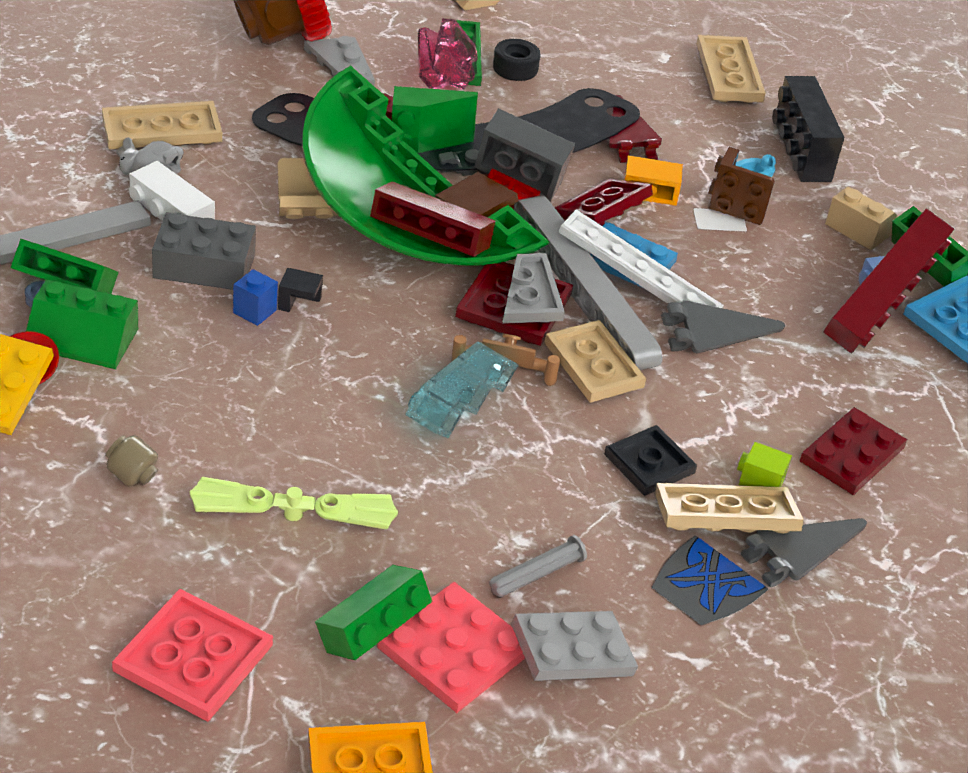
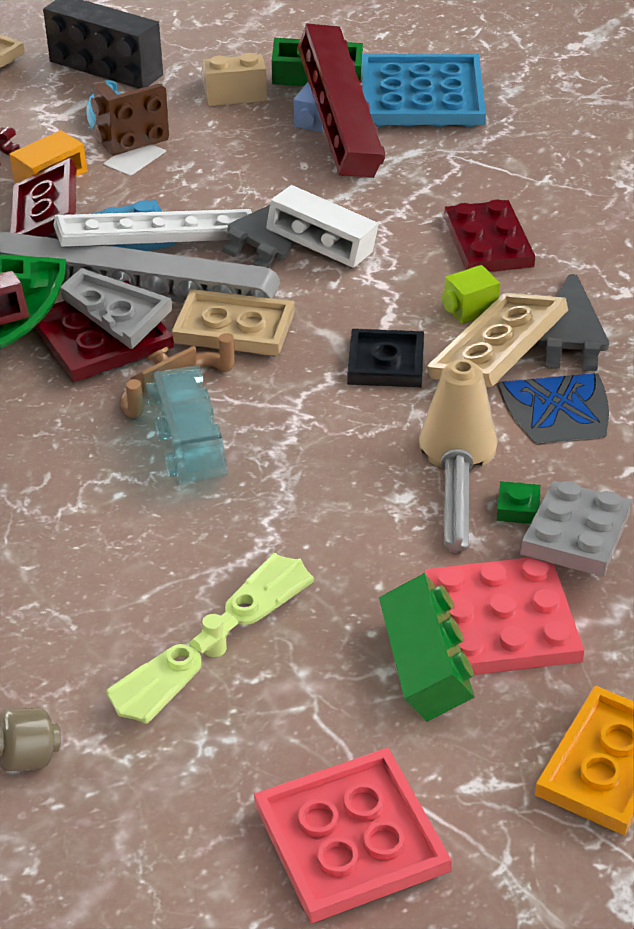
camera: 45 degrees left, 0 degrees up
(573, 599) = (518, 502): none -> green plate
(610, 524) = (459, 415): none -> tan cone
(742, 350) = (322, 226): none -> white brick

